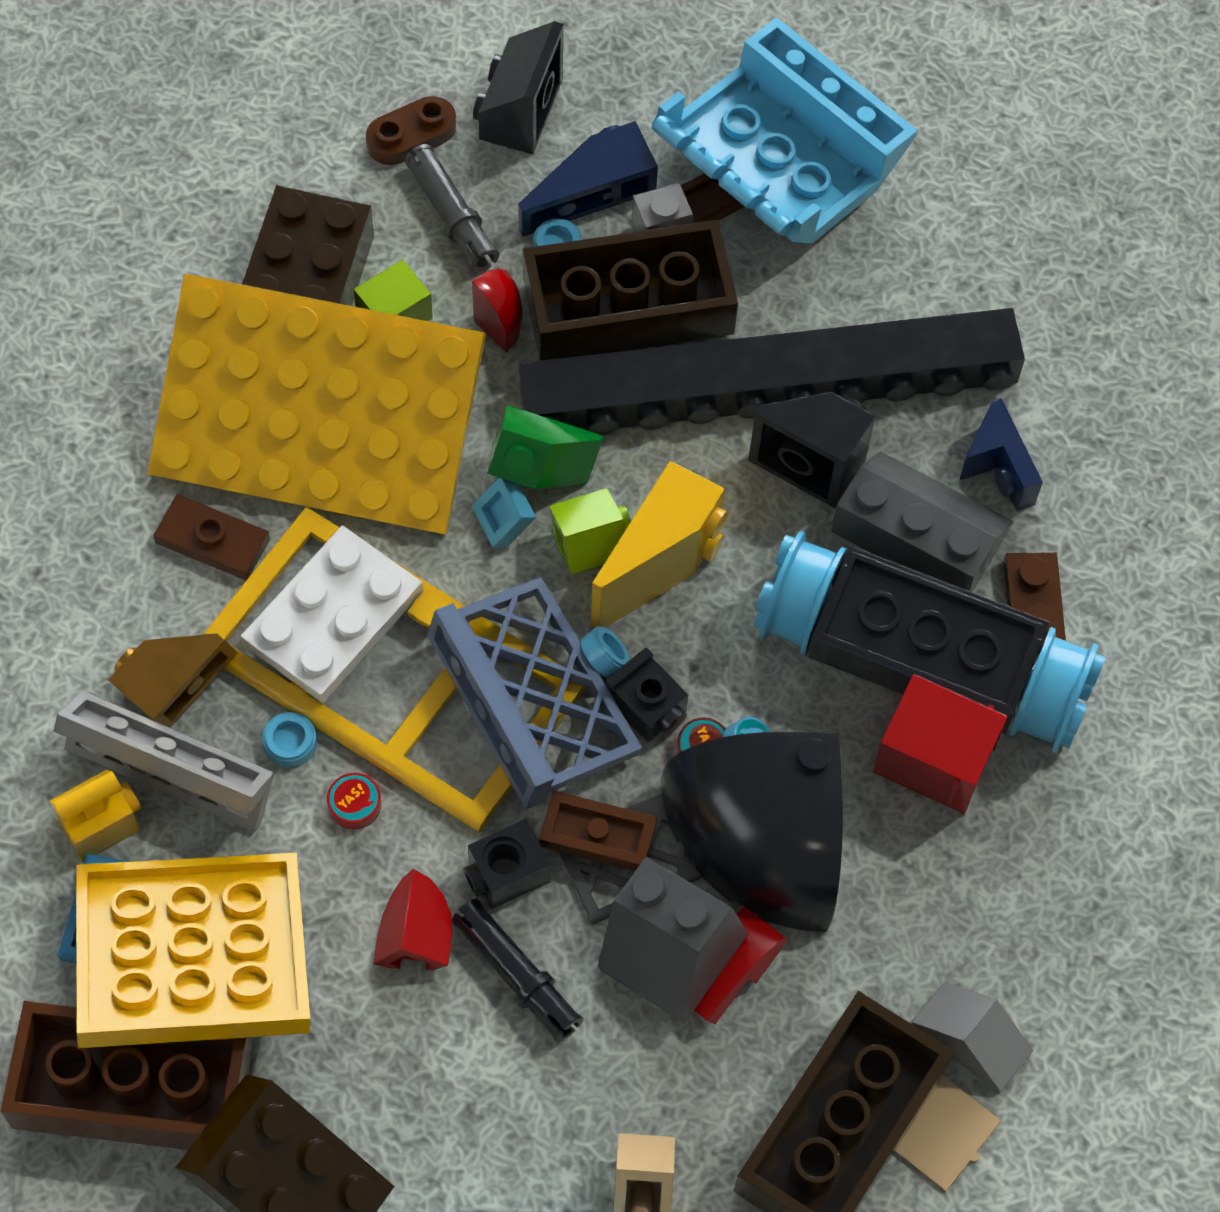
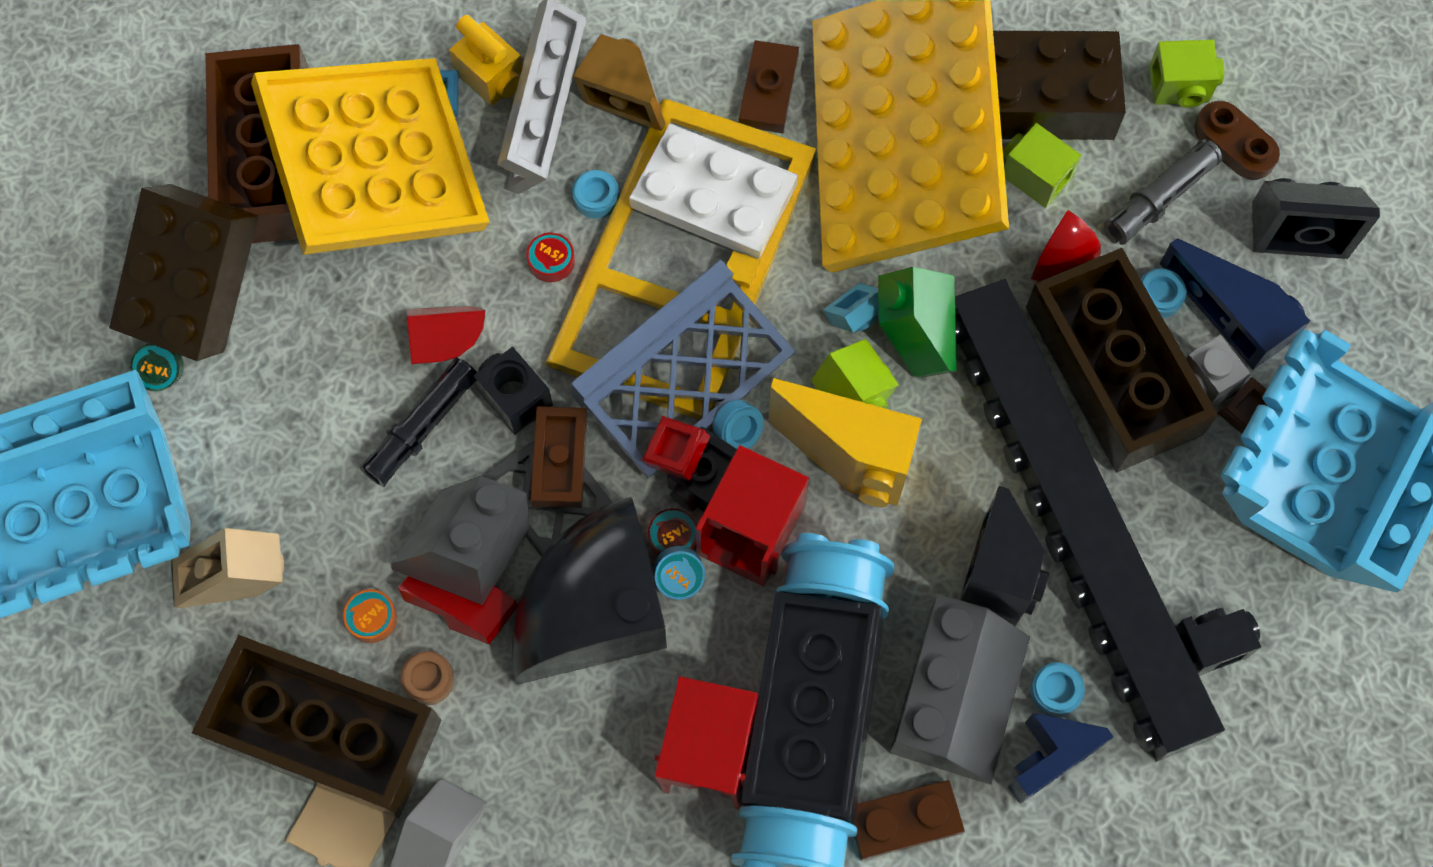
camera: 80 degrees right, 5 degrees up
(328, 149) = (1185, 72): none -> lime brick
(626, 707) = (676, 448): none -> red tile
(716, 653) = (751, 515): none -> red piece
(723, 1062) = (370, 616): none -> orange tile
(803, 1016) = (427, 678): none -> medium nougat tile
(922, 288) = (1219, 638): none -> black brick
(935, 442) = (1057, 689): none -> medium azure tile

